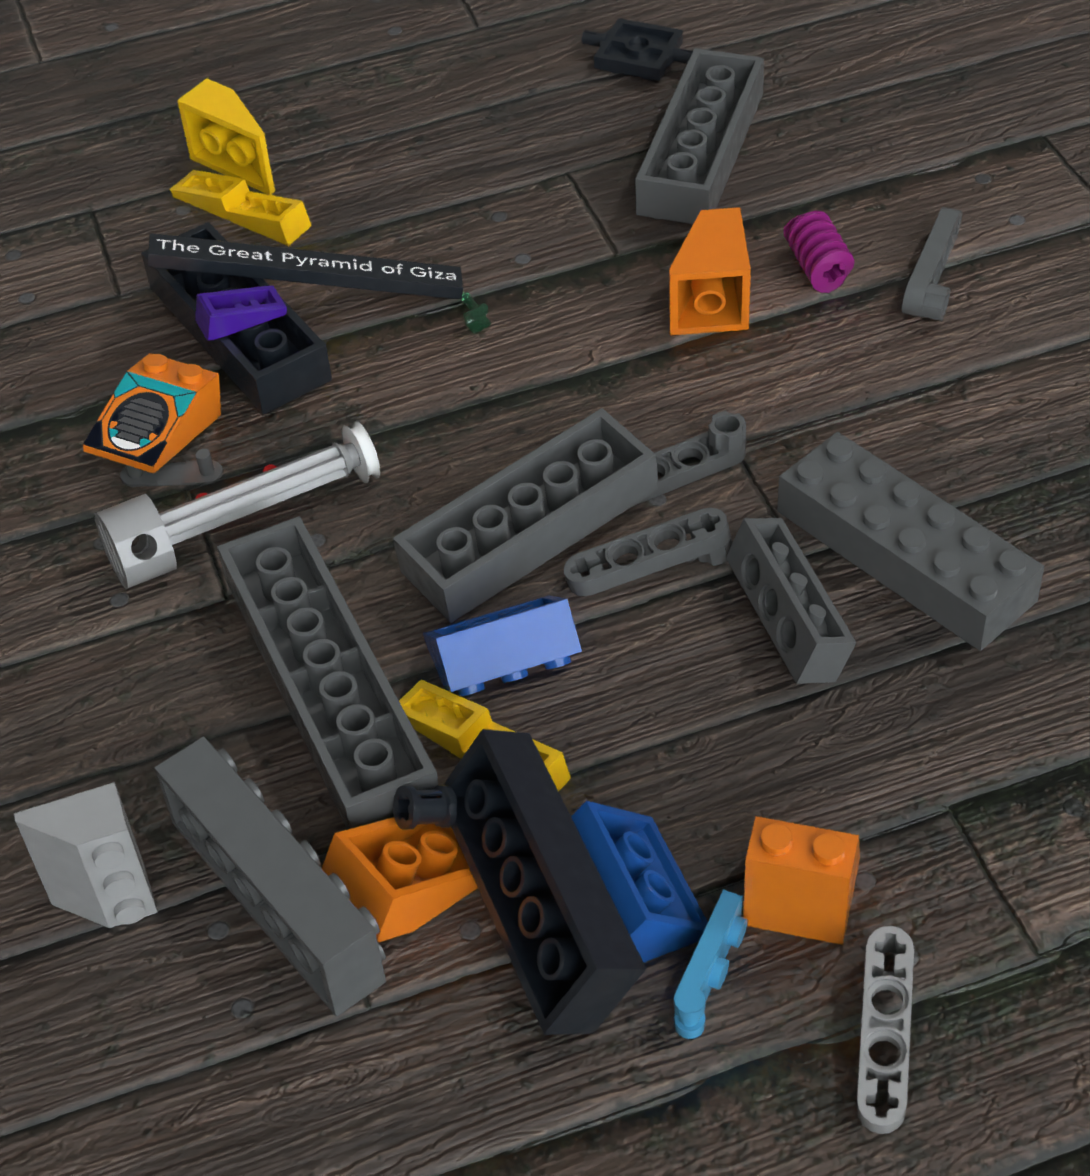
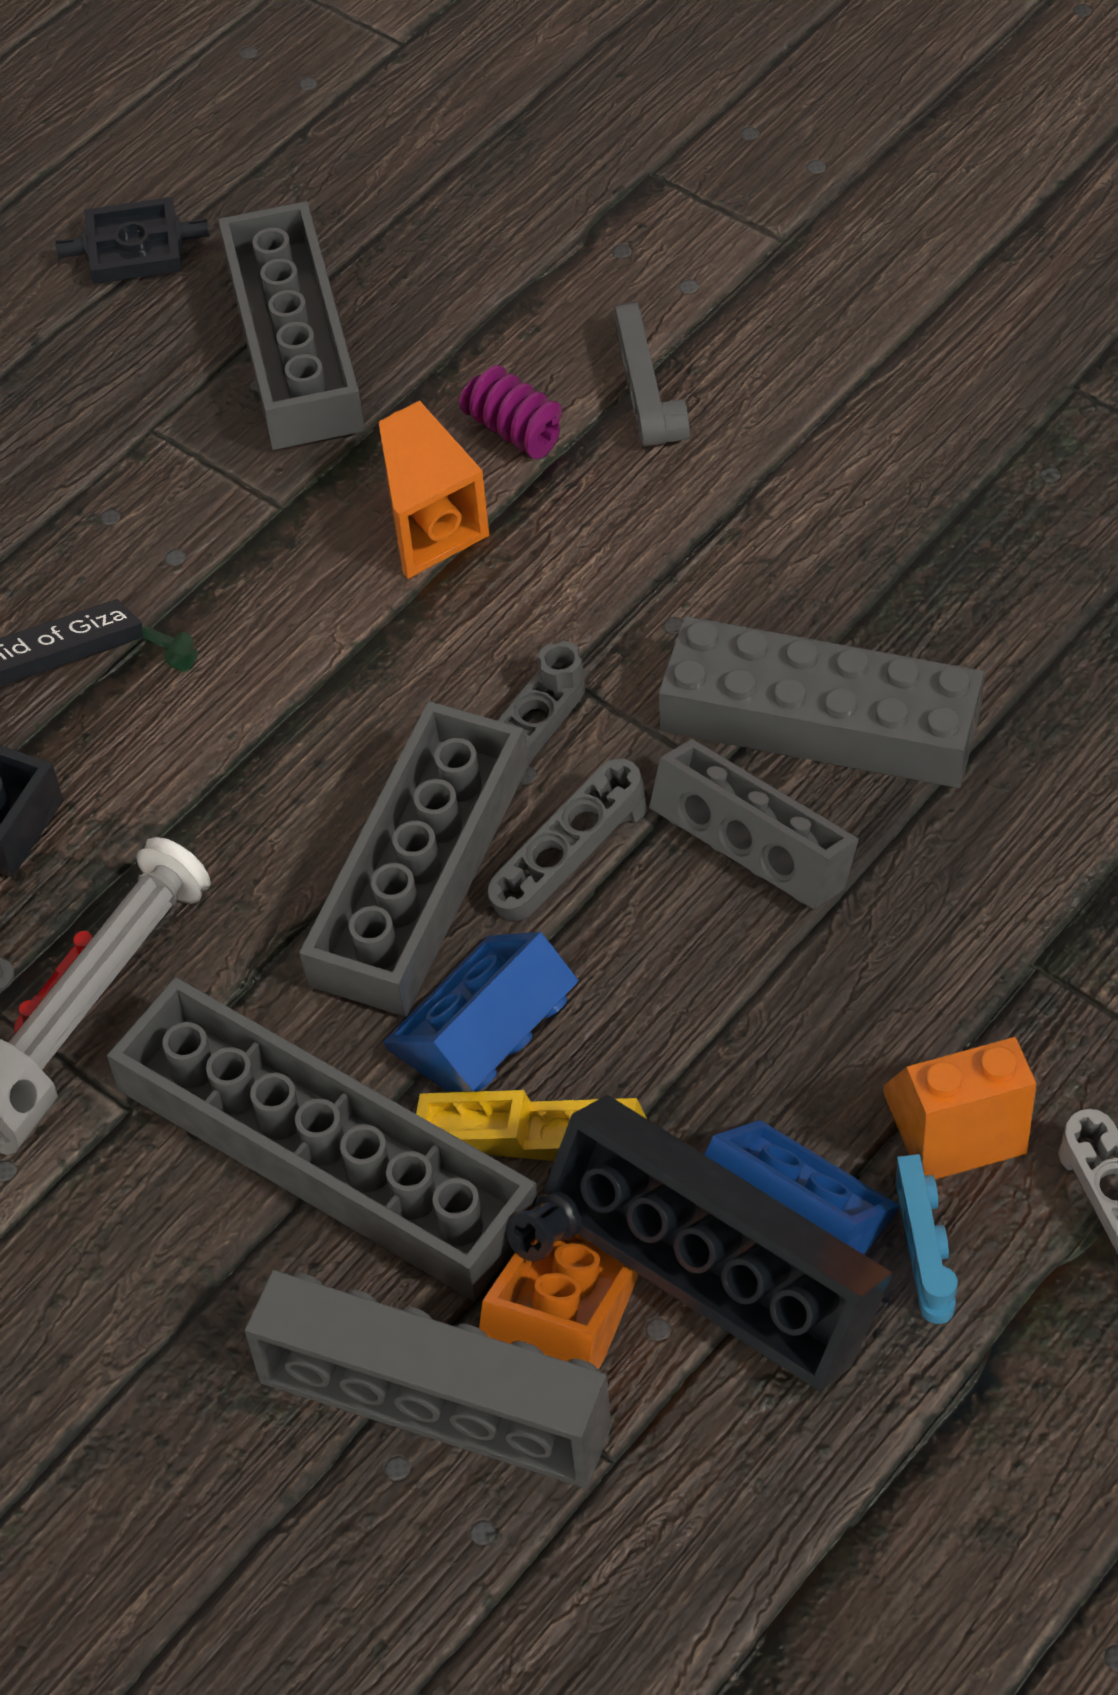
camera: 30 degrees left, 5 degrees up
(89, 857) = (239, 1462): light grey slope -> none

